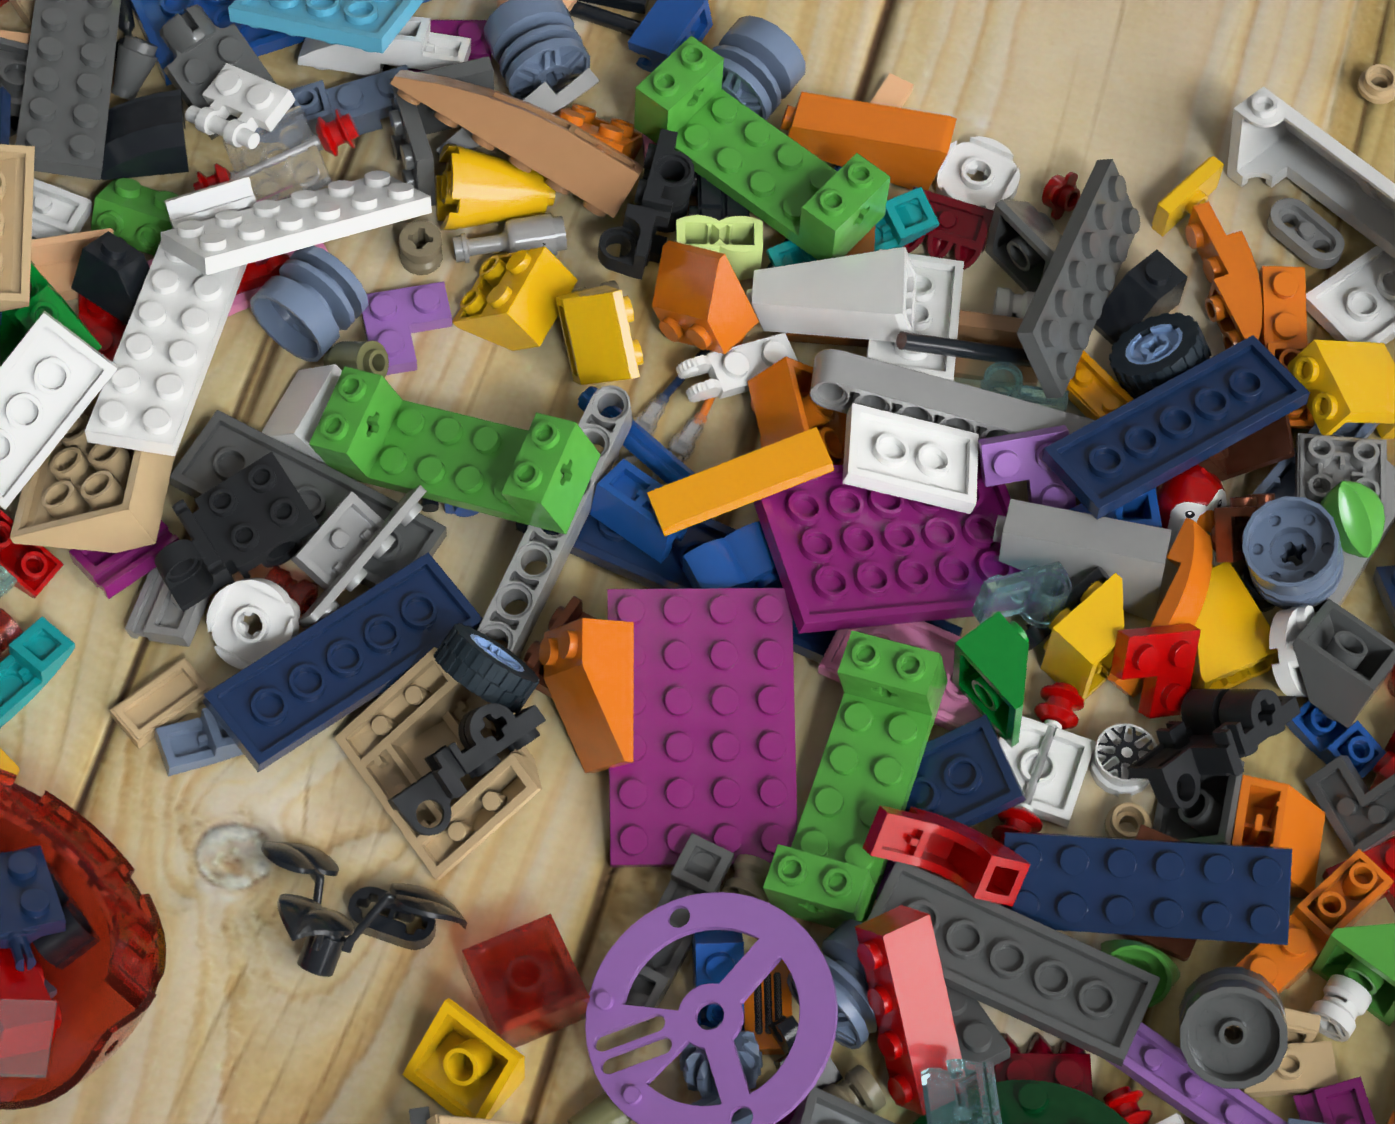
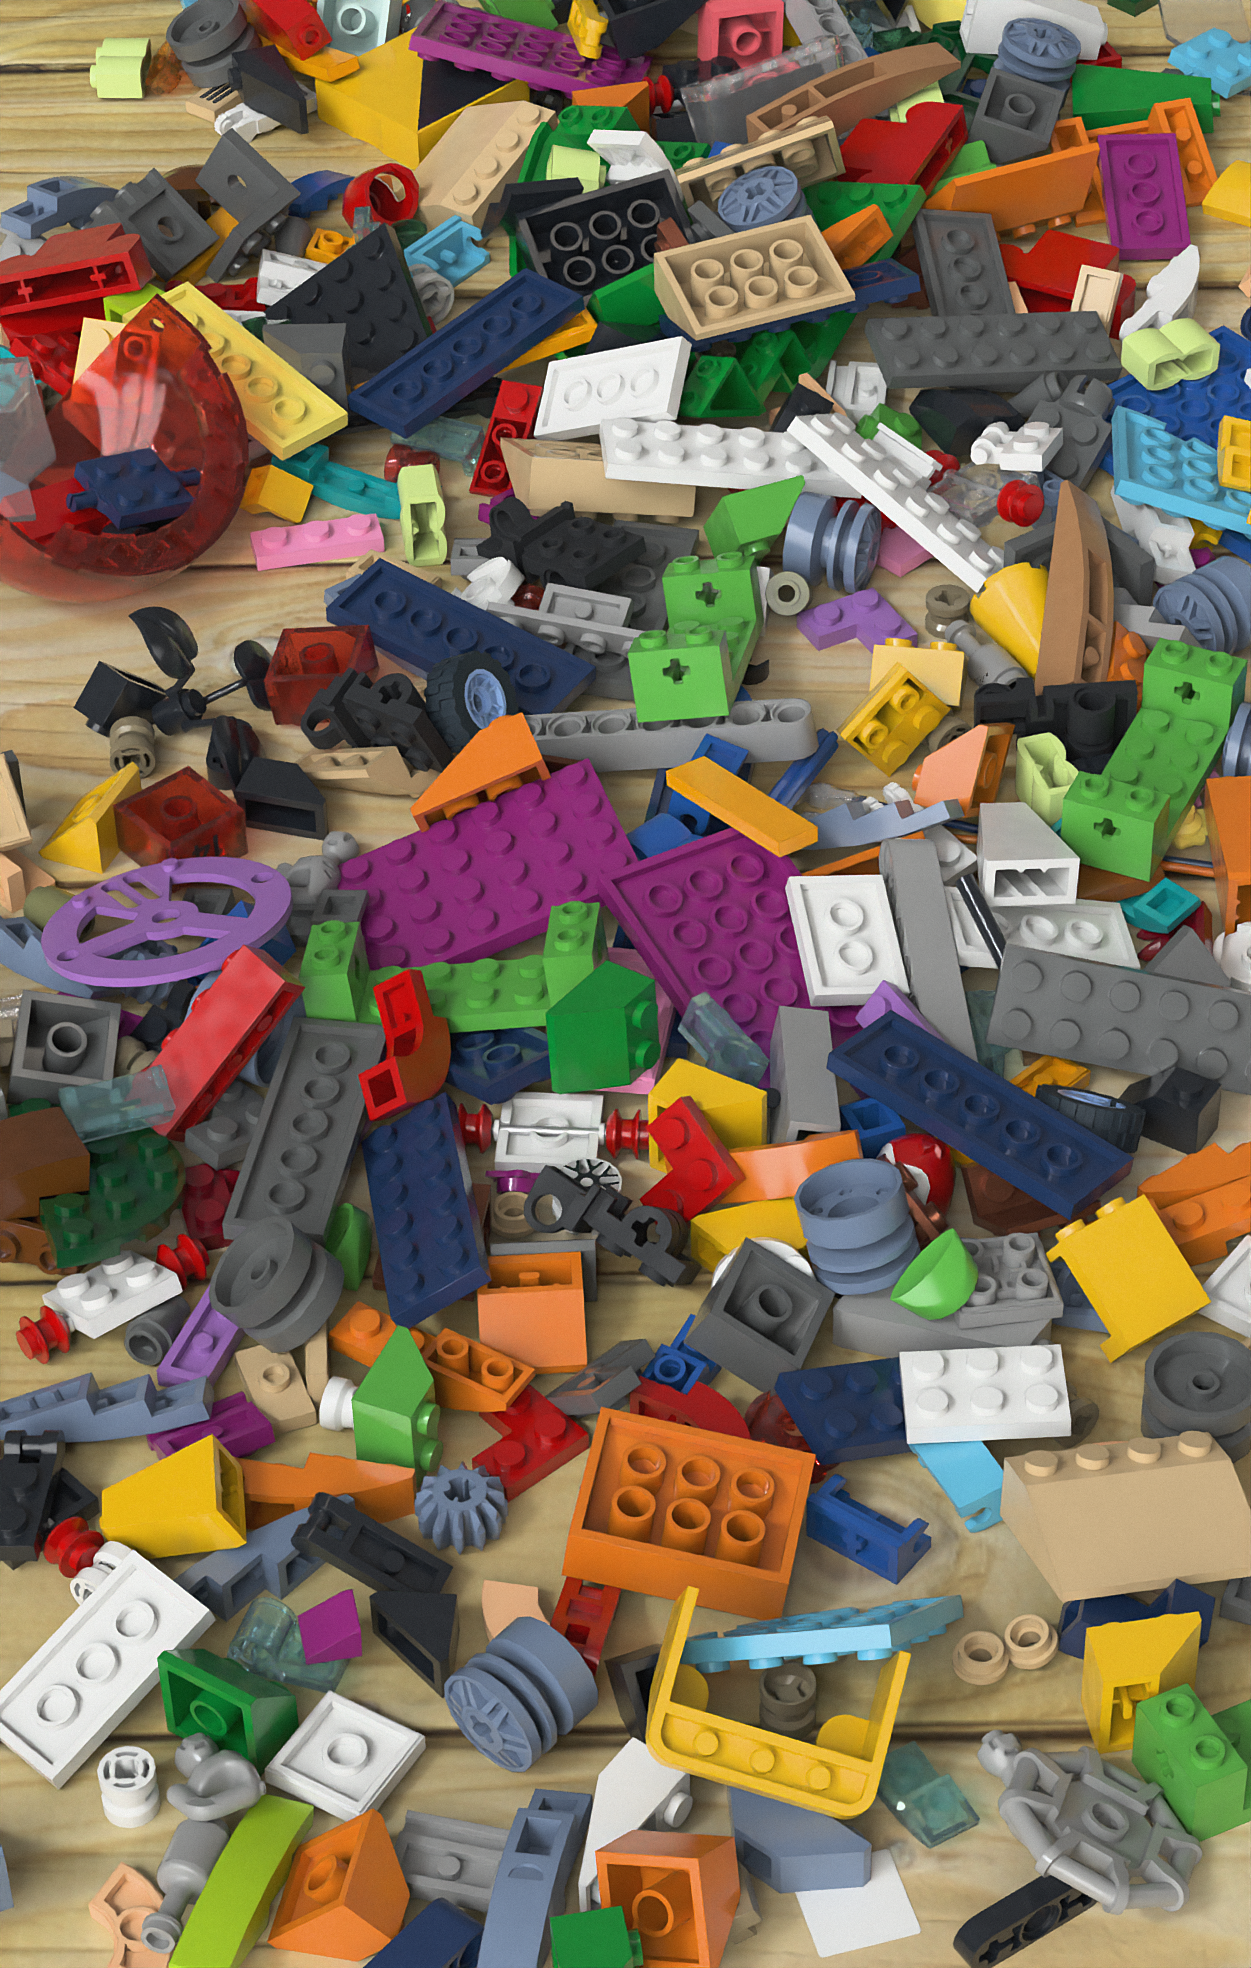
camera: 80 degrees right, 20 degrees down
(68, 747) = (316, 541): none -> bright pink plate
(106, 643) = (422, 515): none -> yellowish green brick
(260, 355) = (752, 518): none -> bright green slope
(284, 997) = (115, 695): none -> black slope
(331, 798) = (310, 661): none -> clear red brick
(371, 1009) = (134, 741): none -> dark tan wheel
(494, 882) = (282, 800): none -> black slope
(620, 880) = (319, 872): none -> light grey piece
(747, 390) = (851, 825): none -> sand blue slope
(1093, 809) = (512, 1180): none -> magenta plate

